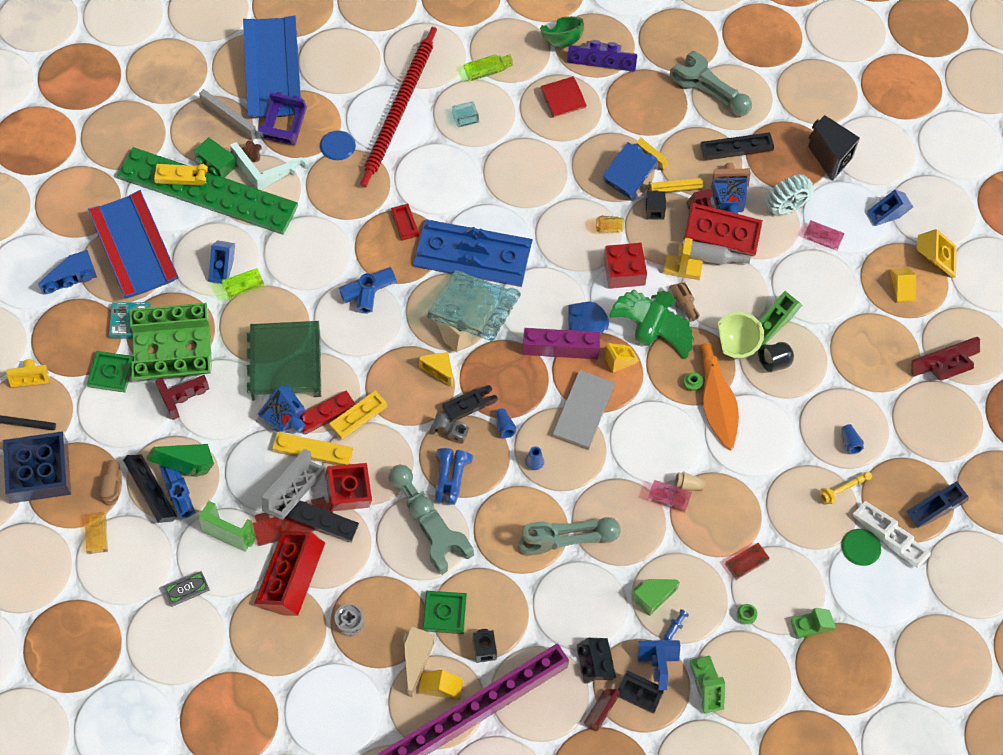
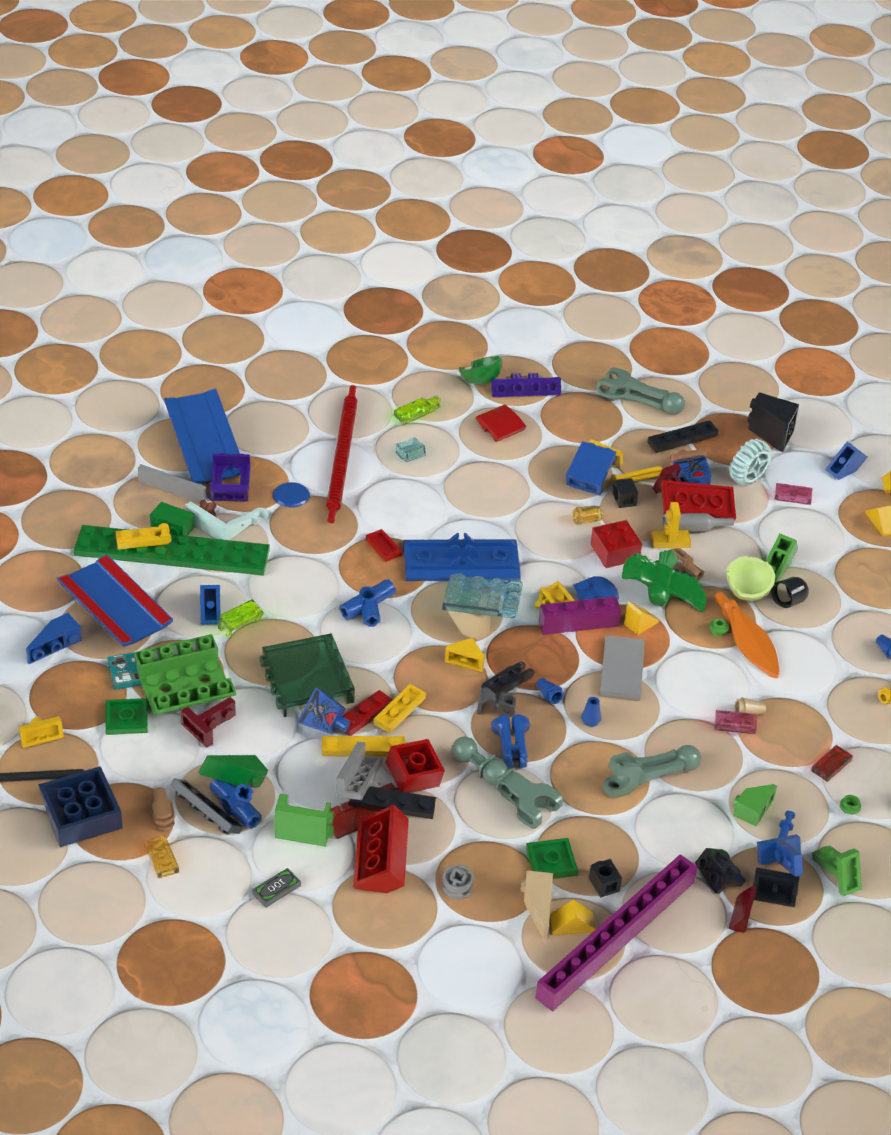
camera: 15 degrees left, 20 degrees down
(545, 316) = (553, 594): none -> yellow slope

